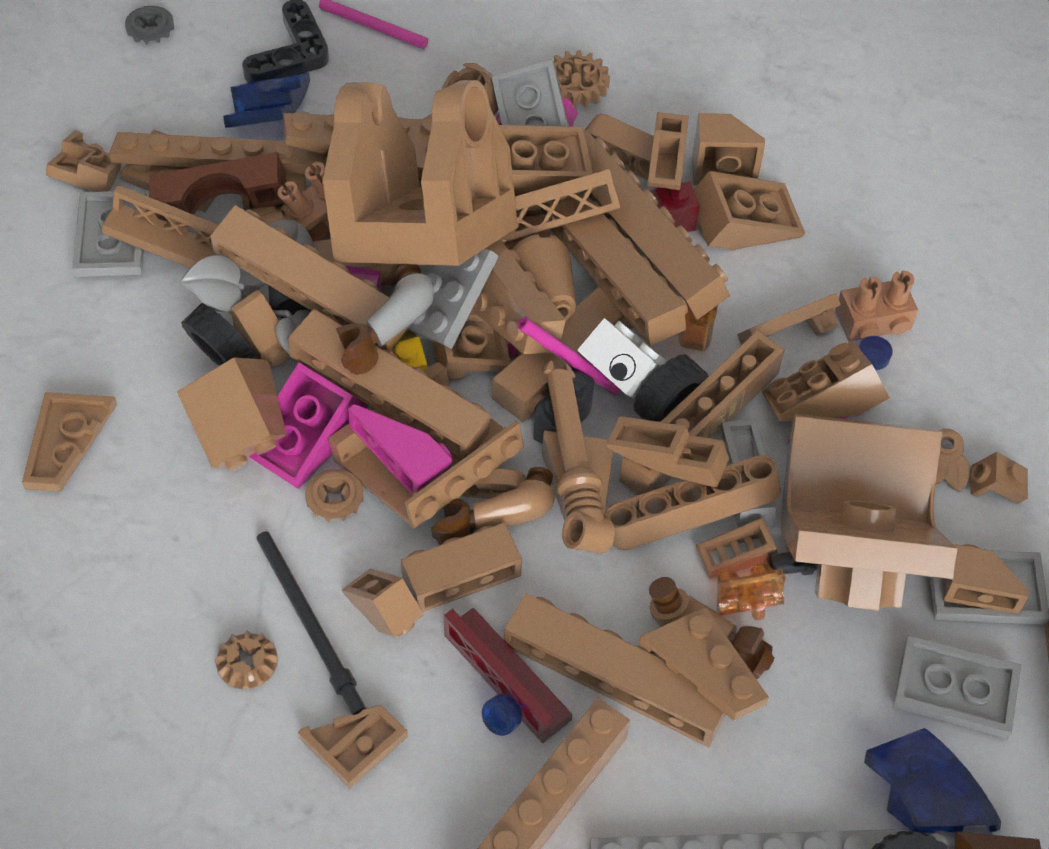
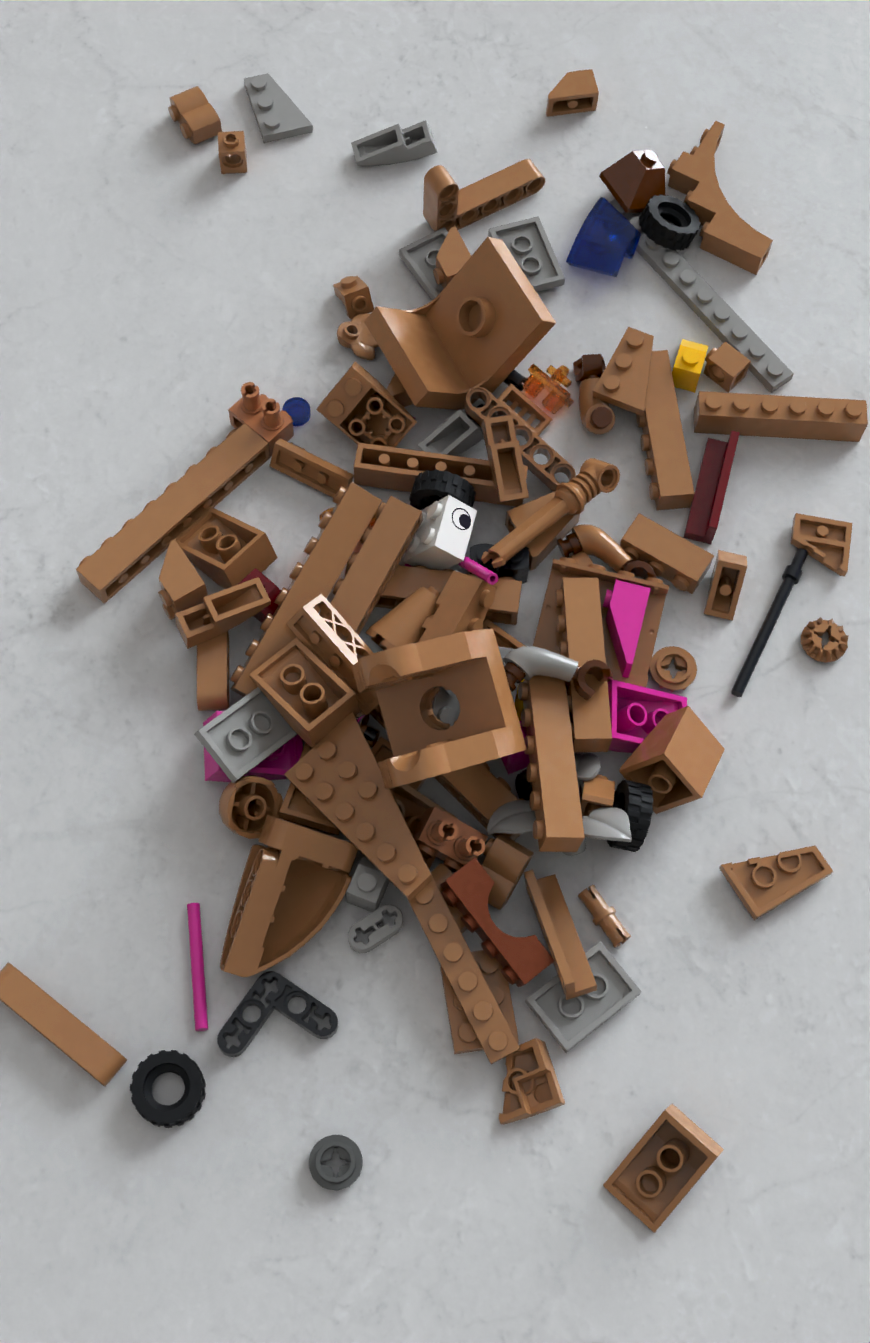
camera: 125 degrees left, 10 degrees up
(157, 290) = (604, 916): none -> medium nougat pin
(266, 100) = (359, 979): clear blue slope -> none
(363, 55) = (284, 895): none -> medium nougat panel
(501, 714) = (742, 471): clear blue tile -> none
(594, 78) = (153, 733): medium nougat gear -> none
(654, 800) = (726, 366): none -> medium nougat brick
(689, 764) = (688, 365): none -> yellow slope
(814, 192) = (173, 512): none -> medium nougat brick

